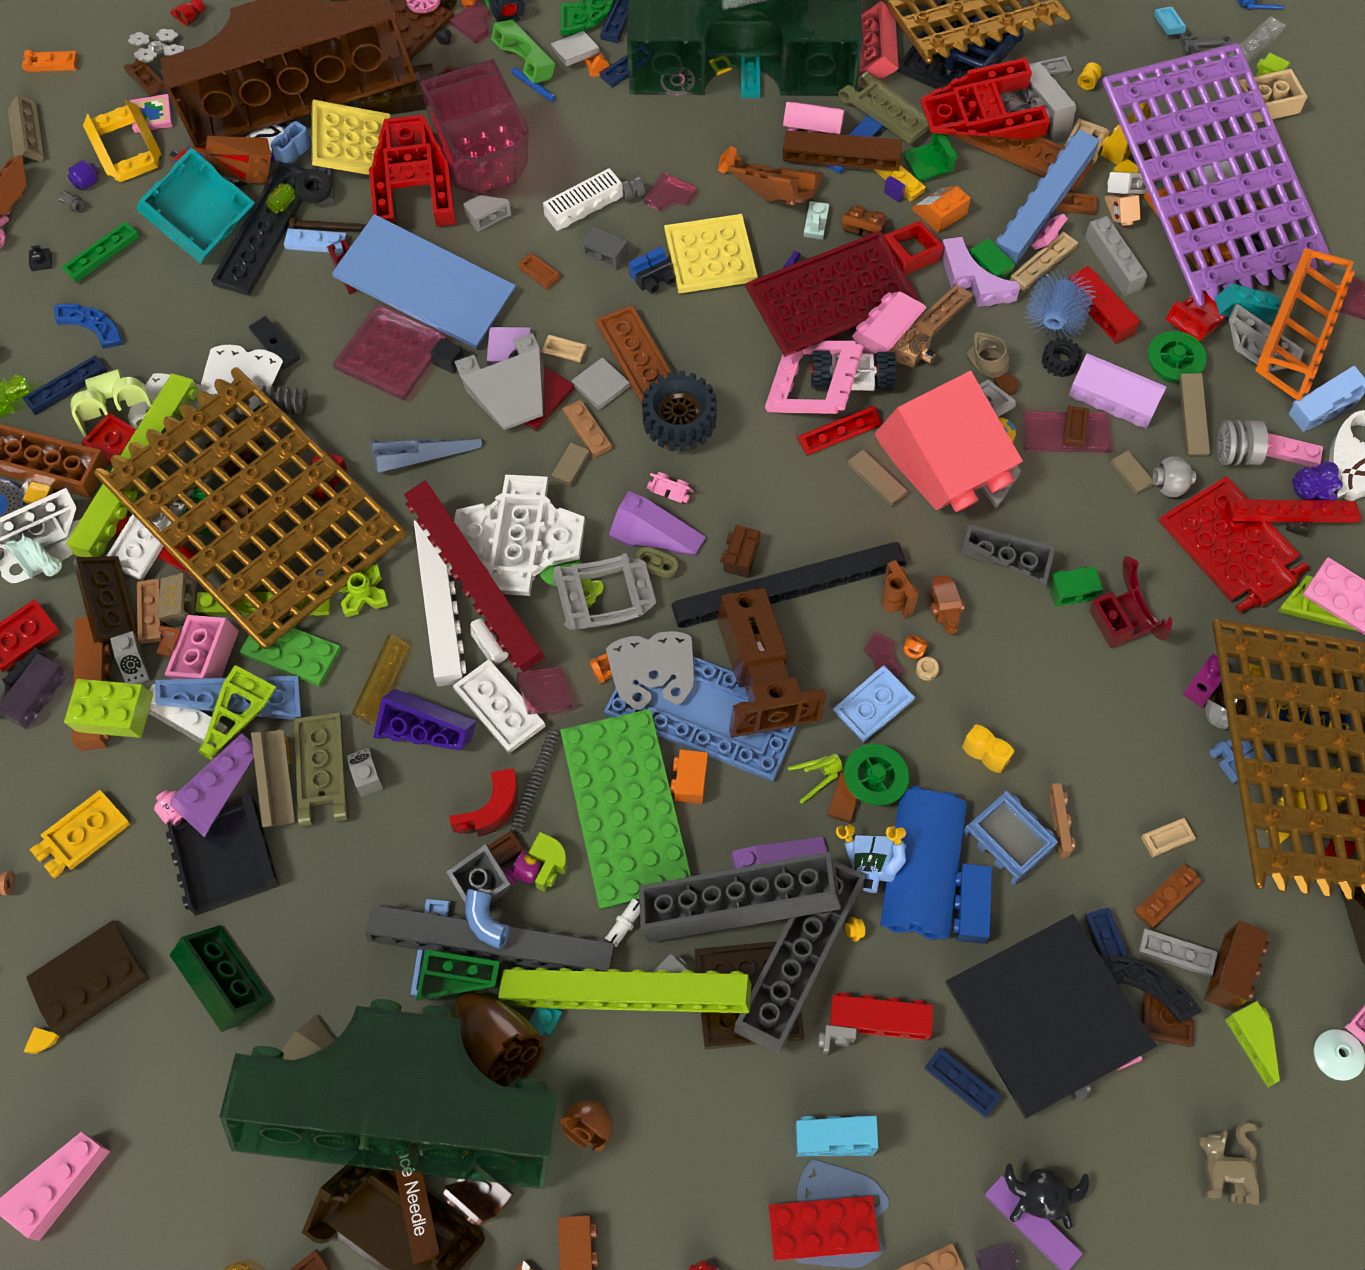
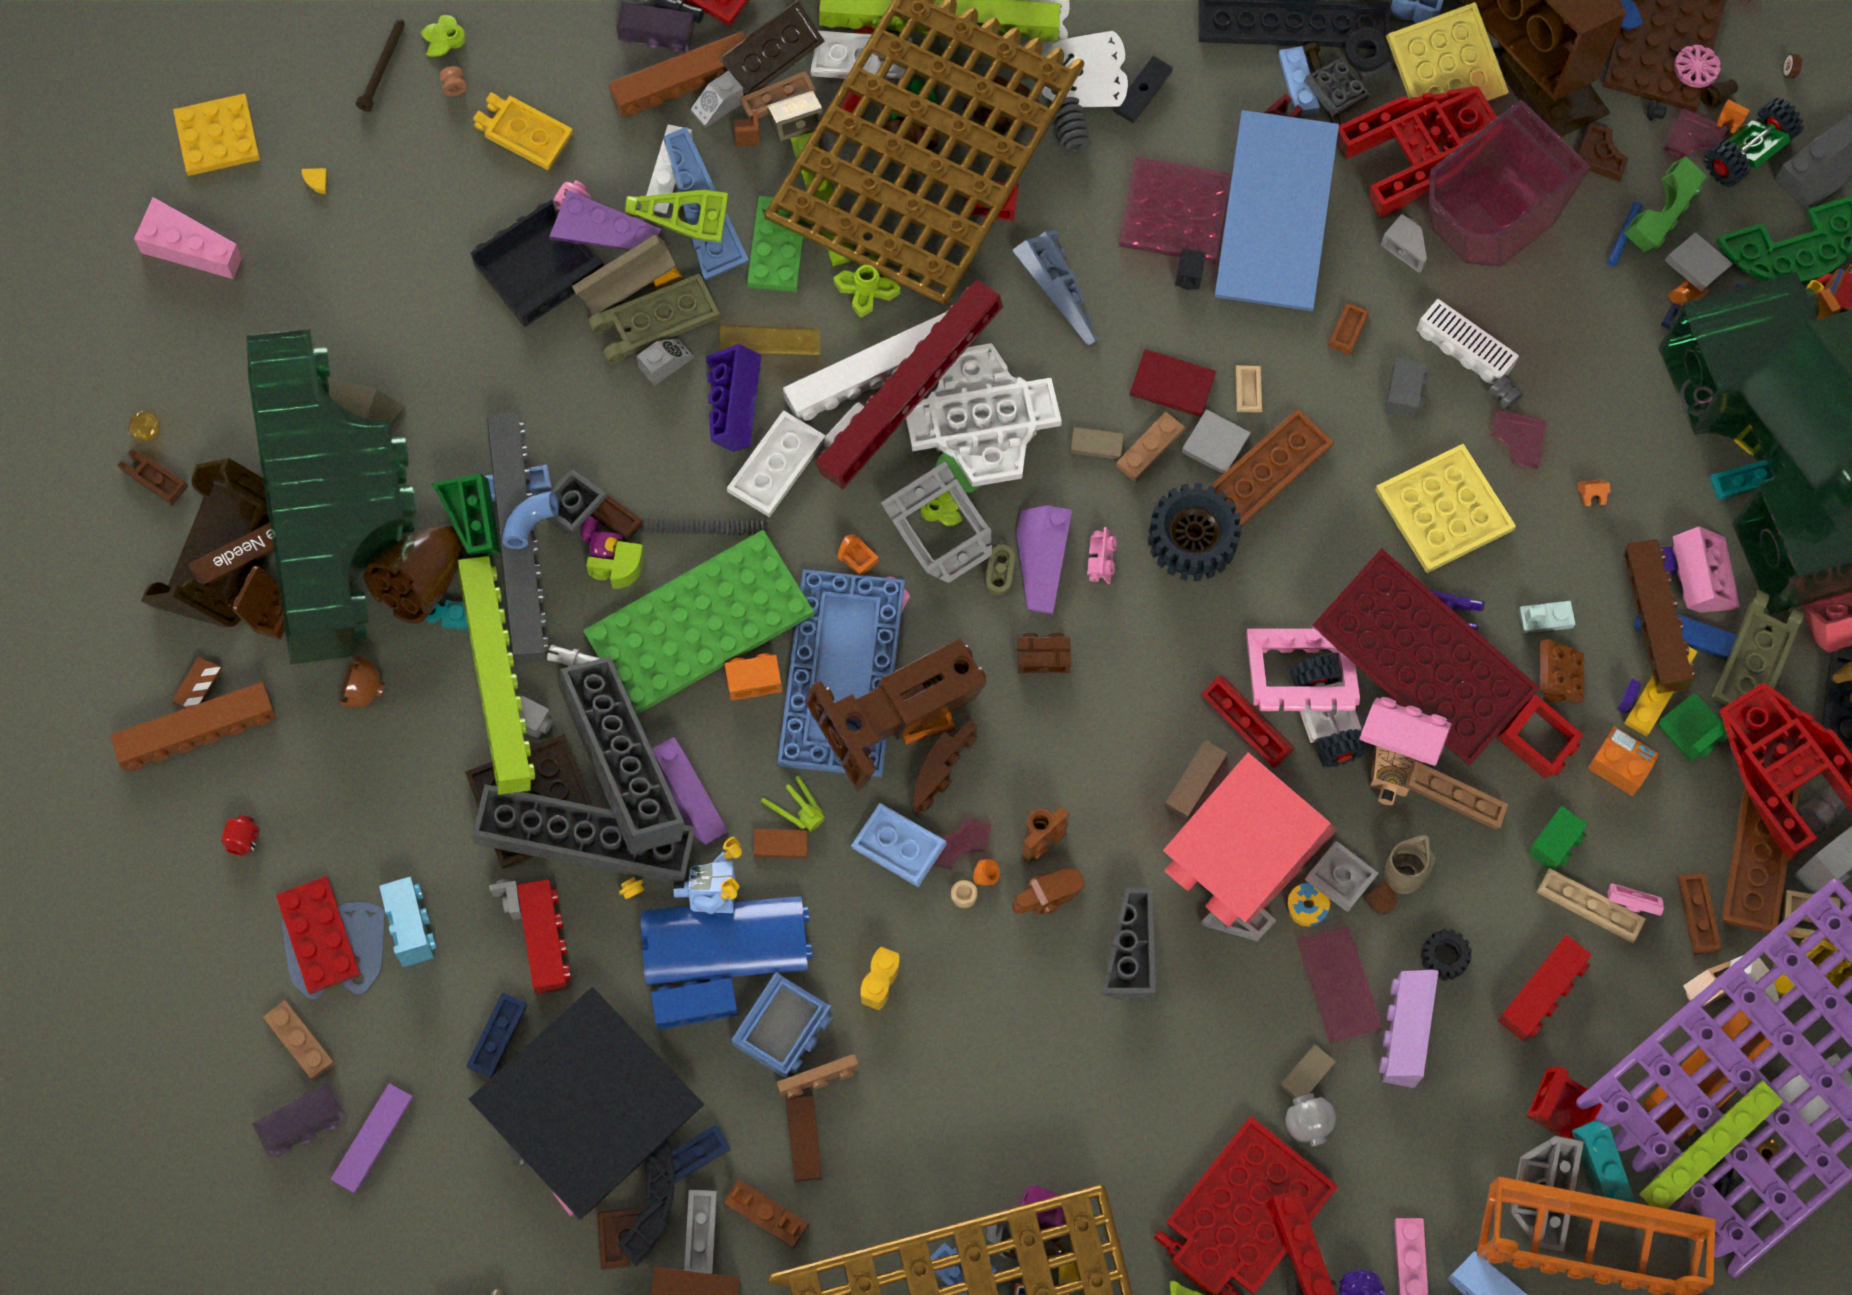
camera: 70 degrees right, 5 degrees up
(86, 979) = (383, 193): dark brown slope -> none
(108, 708) = (646, 98): lime brick -> none
(202, 648) = (744, 160): bright pink slope -> none
(220, 977) = (415, 307): dark green slope -> none
(280, 197) = (1332, 22): clear neon green brick -> none
(334, 215) = (1336, 87): none -> dark grey tile
(495, 812) = (663, 500): red arch -> none
(501, 342) = (1234, 325): lavender tile -> none
(509, 389) = (1168, 349): light grey wedge -> none
(544, 690) = (806, 501): clear pink tile -> none
(650, 655) = (881, 596): light grey piece -> none
(652, 269) = (1393, 450): black hips -> none
(778, 183) = (1579, 555): dark orange wedge -> none
(794, 582) = (1024, 724): black beam -> none
(816, 658) = (934, 772): none -> reddish brown slope
(876, 774) = (808, 864): green wheel -> none
(968, 274) = (1528, 810): lavender arch -> none
(1045, 1194) = (399, 1139): black piece -> none
(1048, 195) = (1685, 882): medium blue brick -> none
(1059, 304) = (1510, 928): medium blue piece -> none
(1075, 426) = (1346, 990): reddish brown tile -> none
(1075, 586) = (1122, 1034): green brick -> none
(1110, 848) = (803, 1138): none -> reddish brown tile
(1115, 256) = (1627, 989): light grey brick -> none
(1128, 614) = (1100, 1098): dark red piece -> none
(1168, 837) = (836, 1202): tan tile -> none
(1176, 354) = (1494, 1092): green wheel -> none
(1194, 415) = (1414, 1130): dark tan tile -> none
(1242, 442) = (1387, 1192): light grey wheel -> none
(1254, 232) = (1711, 1146): none -> lime plate

